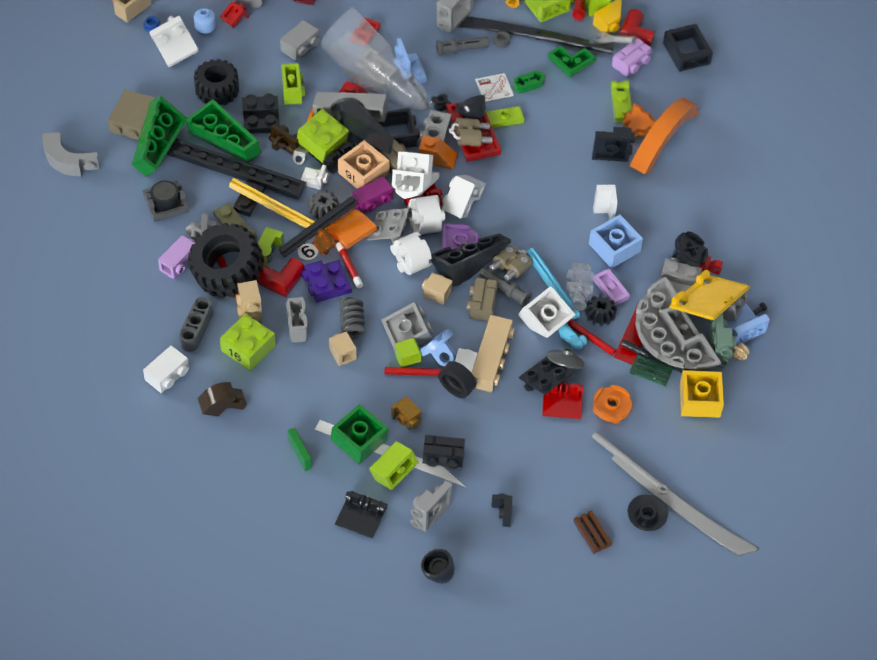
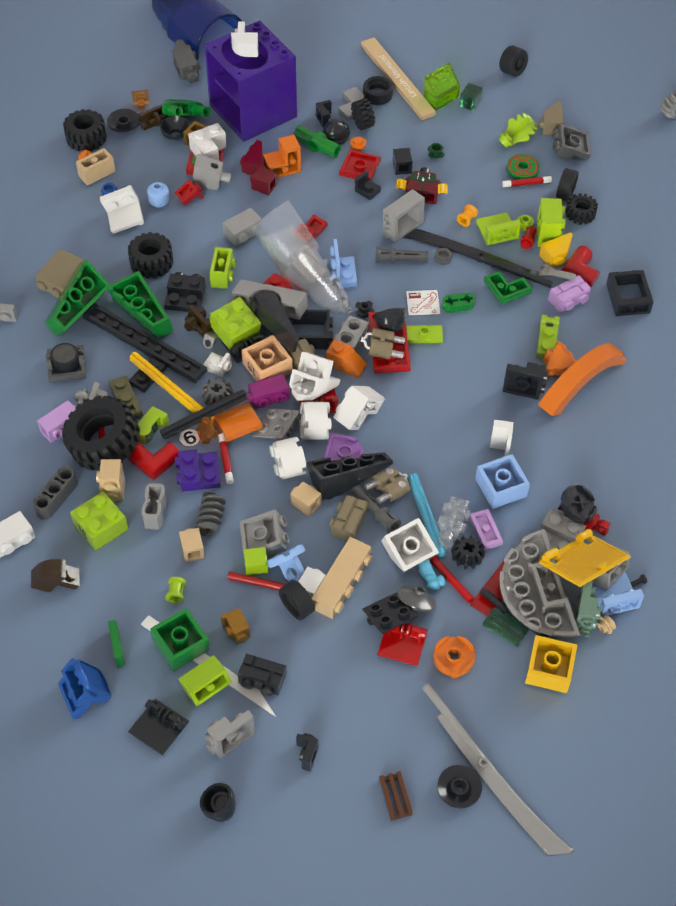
camera: 15 degrees right, 0 degrees up
(280, 492) = (82, 686): none -> blue piece
(340, 392) = (175, 590): none -> lime bush

